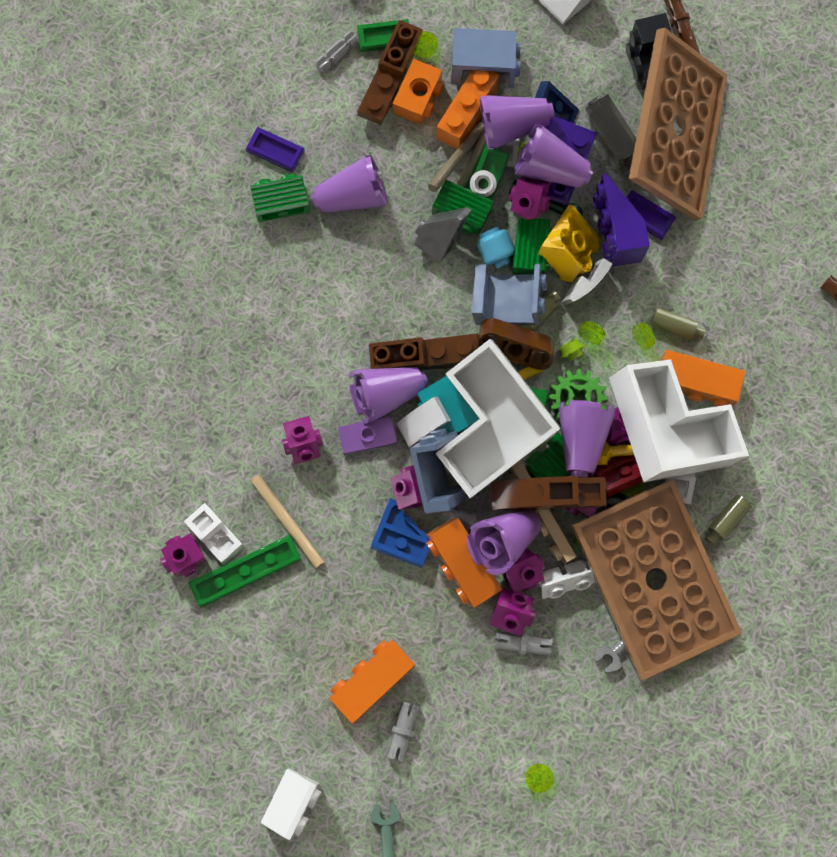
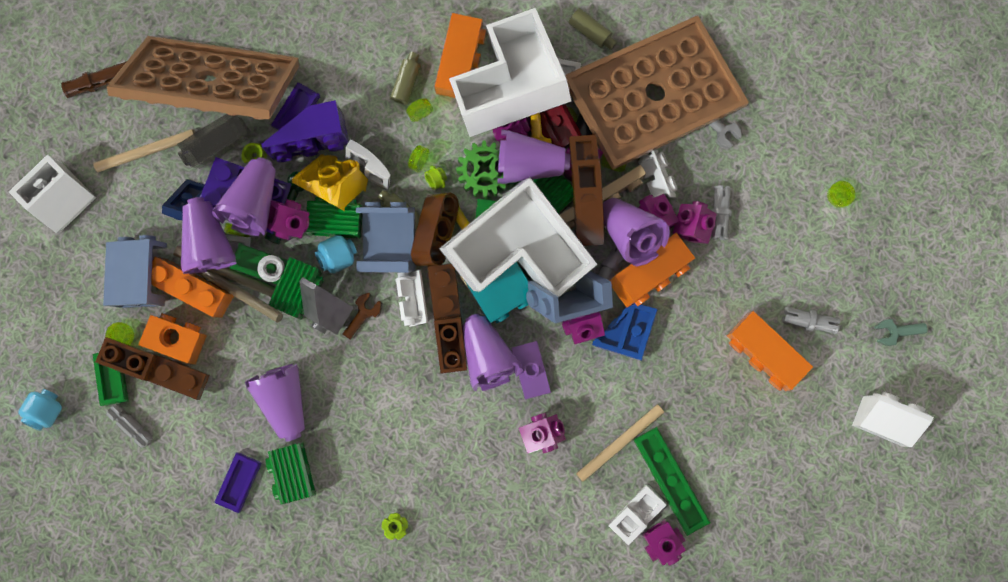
camera: 85 degrees left, 5 degrees up
(221, 301) = (402, 525): none -> lime plate
(422, 421) = (517, 315): white slope -> none
(433, 272) = (362, 314): none -> reddish brown bar
(435, 321) = (414, 308): none -> white hinge
(601, 166) = (251, 148): none -> lime plate
(608, 69) = (142, 151): none -> tan bar
(641, 44) = (122, 114): black brick -> none

